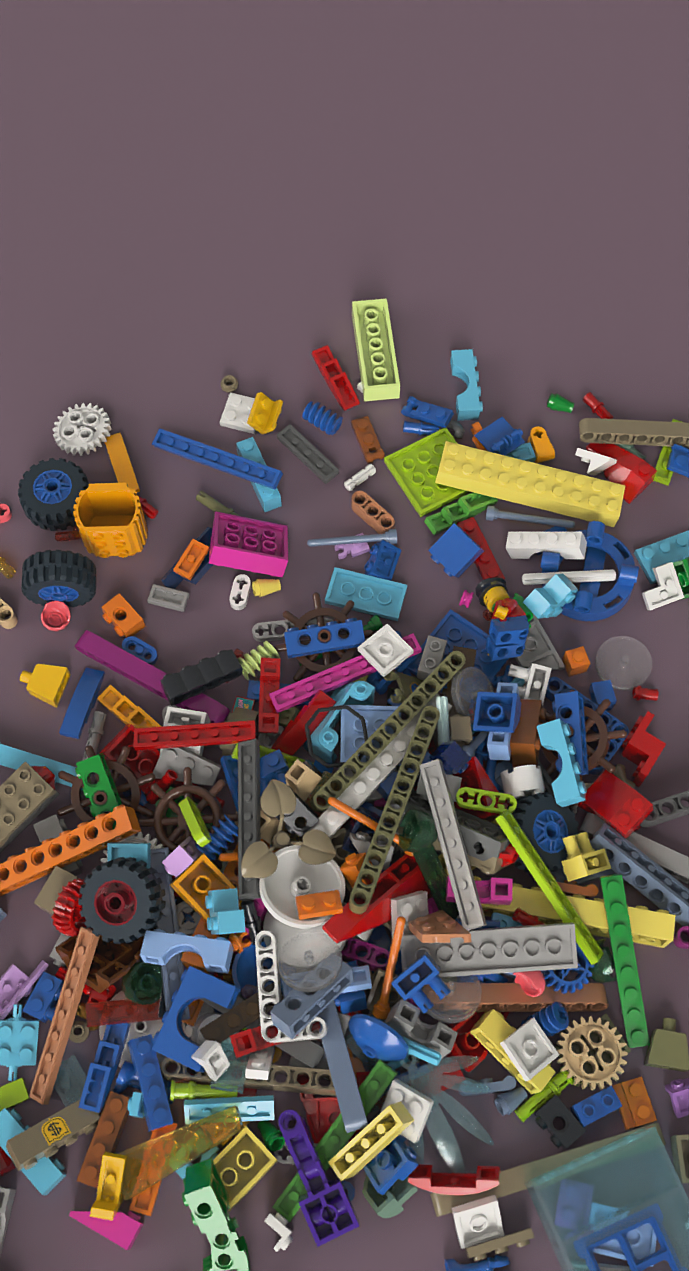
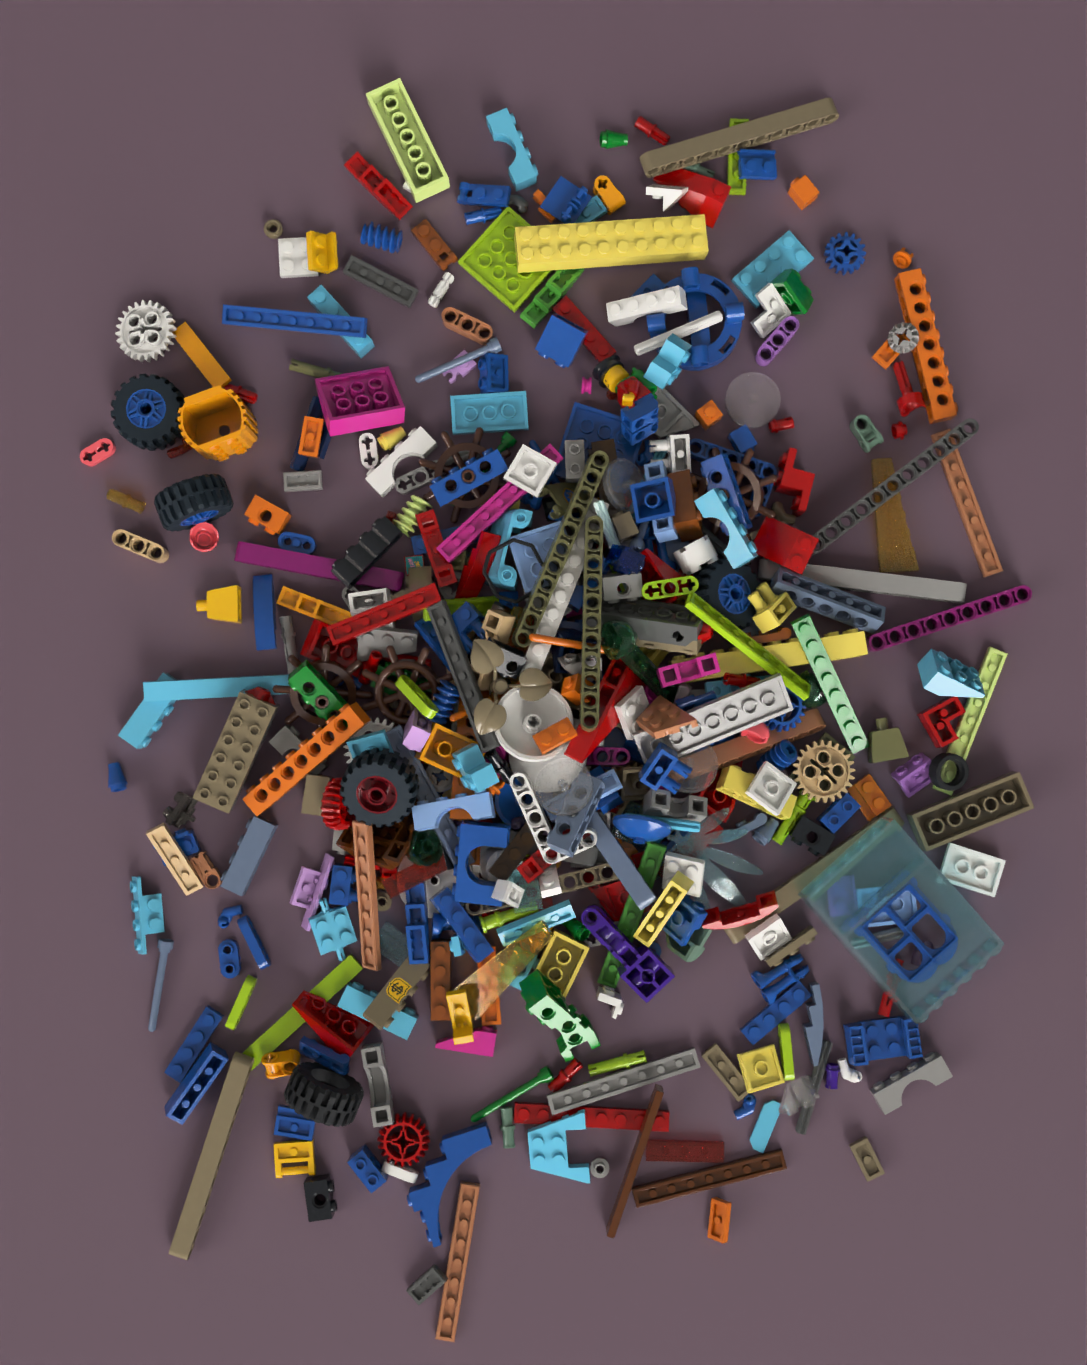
camera: 15 degrees left, 20 degrees up
(286, 599) = (417, 444): none -> white arch
(382, 1007) = (636, 798): orange piece -> none
(452, 845) = (653, 641): light grey plate -> none
(493, 513) = (585, 285): sand blue piece -> none
(667, 610) = (781, 333): none -> medium lavender beam

